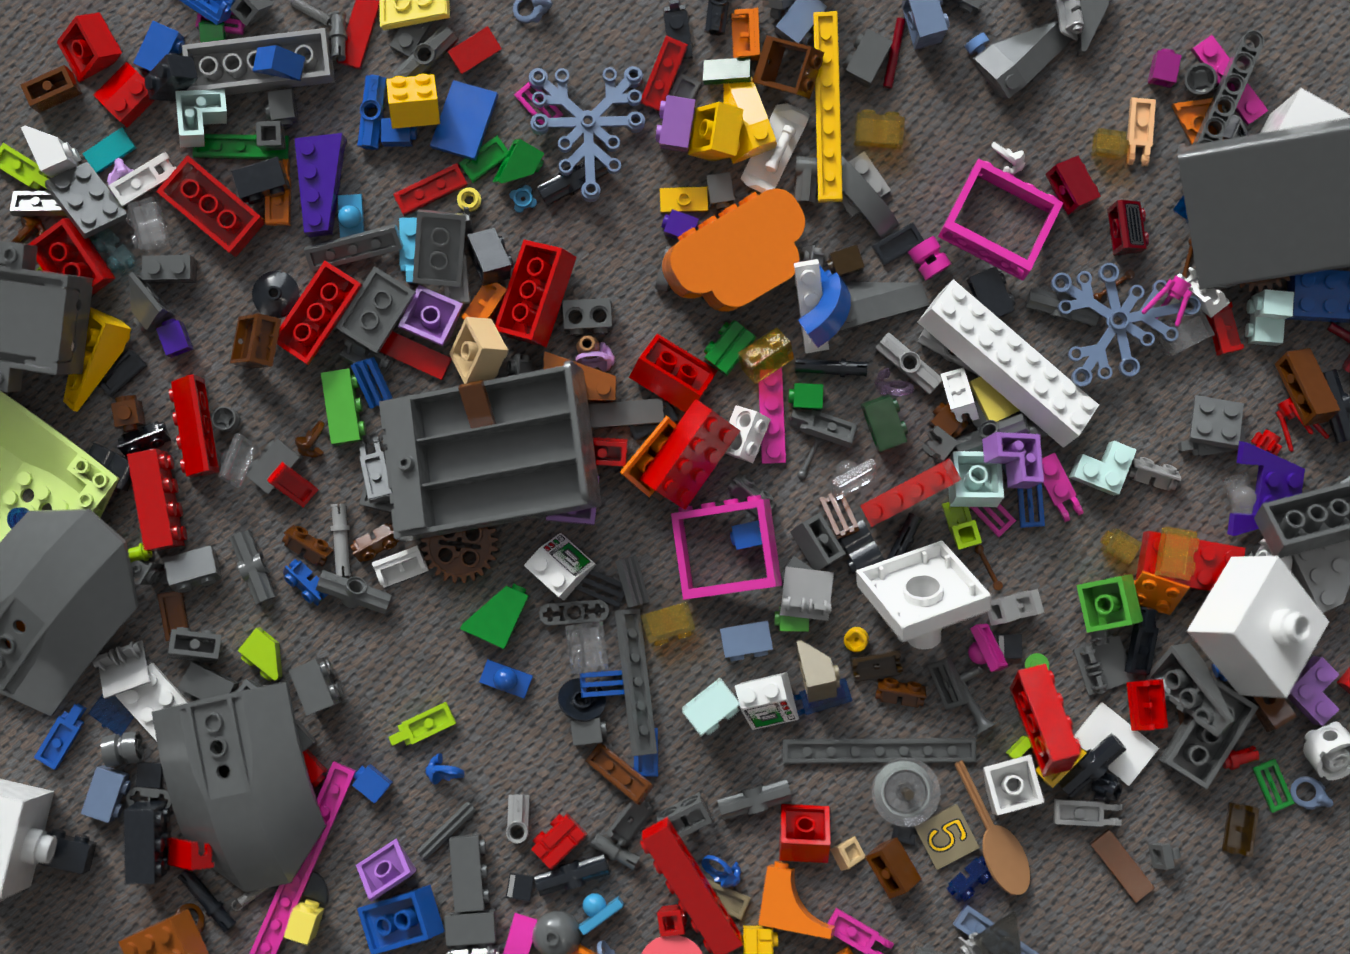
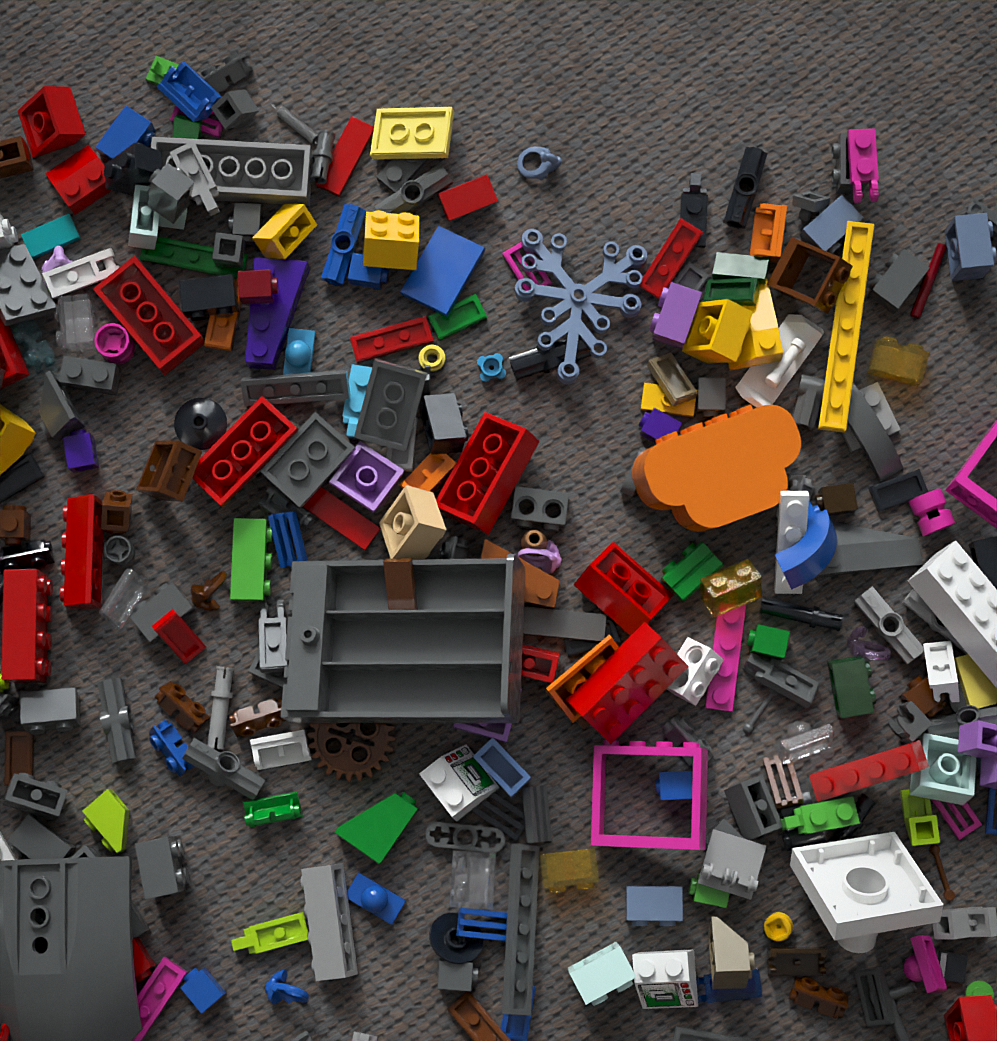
camera: 15 degrees right, 5 degrees down
(185, 237) = (114, 343): none -> dark pink wheel
(207, 93) = (169, 192): none -> dark grey brick
(216, 386) = (116, 512): none -> reddish brown brick
(228, 74) = (204, 188): none -> light grey hinge
(279, 62) = (253, 173): blue slope -> none
(301, 164) = (257, 286): none -> dark red brick
(317, 109) = (284, 231): none -> yellow brick
(403, 619) = (272, 809): none -> green hinge
(469, 706) = (329, 922): none -> light grey brick
(519, 162) = (494, 327): green slope -> none
(595, 547) = (502, 767): none -> medium blue piece
(683, 181) = (672, 379): none -> dark tan tile
(728, 92) = (739, 290): none -> dark green tile
(878, 538) = (823, 816): none -> bright green hinge

